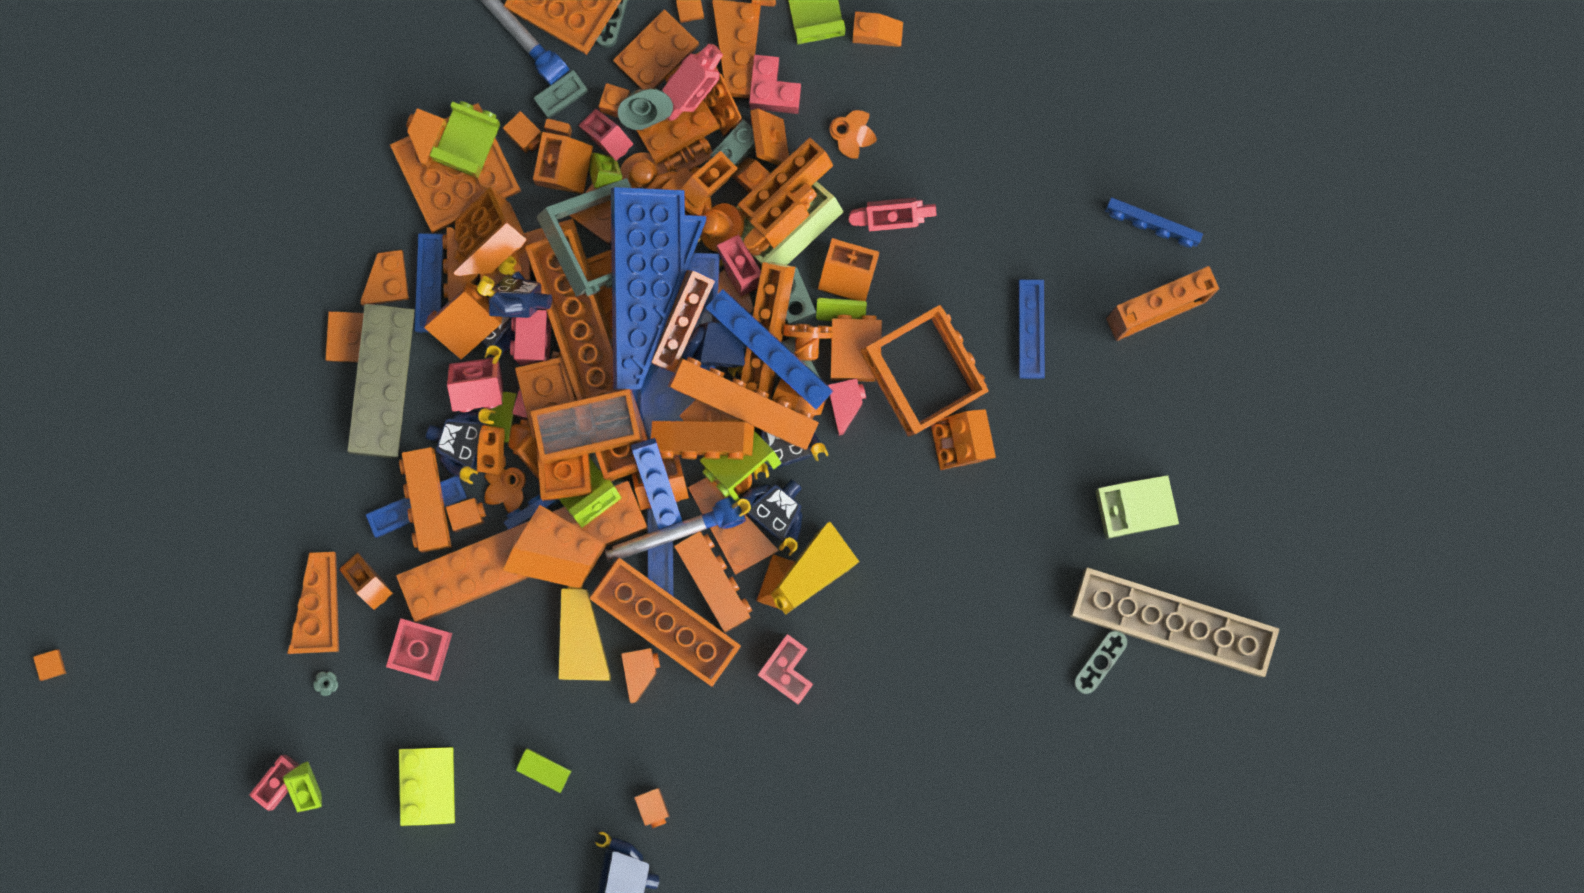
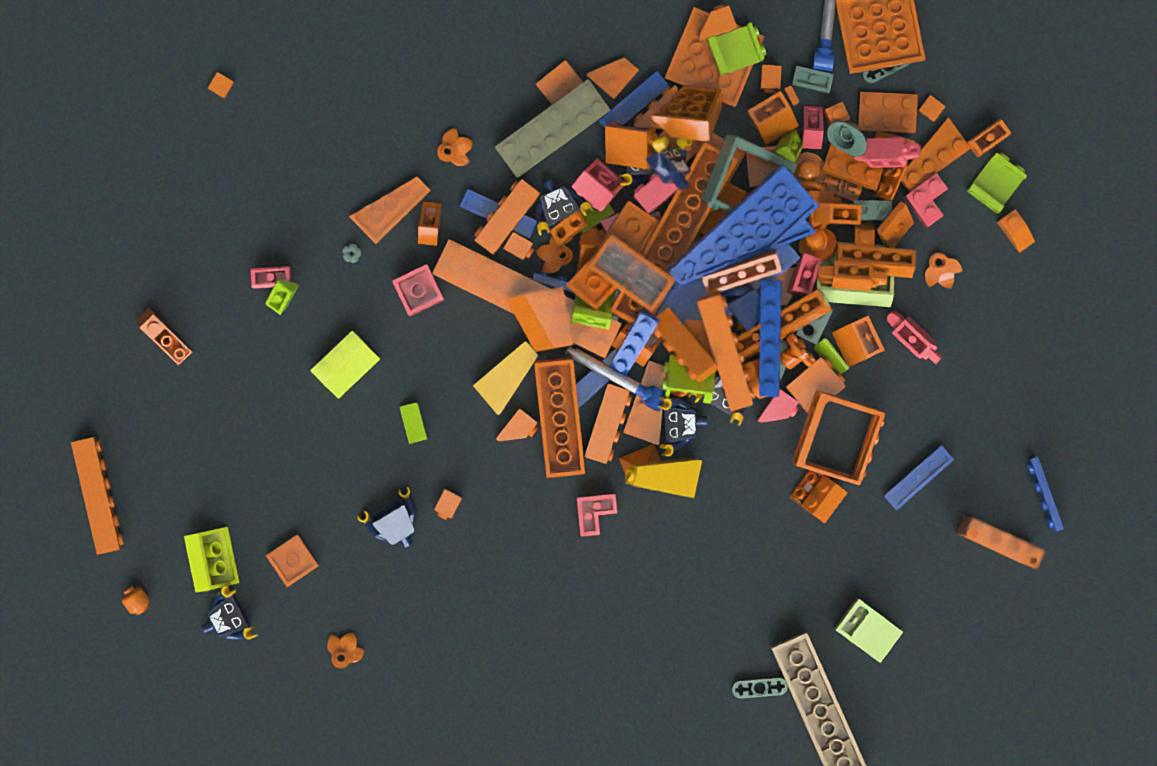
camera: 45 degrees right, 5 degrees up
(317, 489) = (457, 146): none -> orange plate

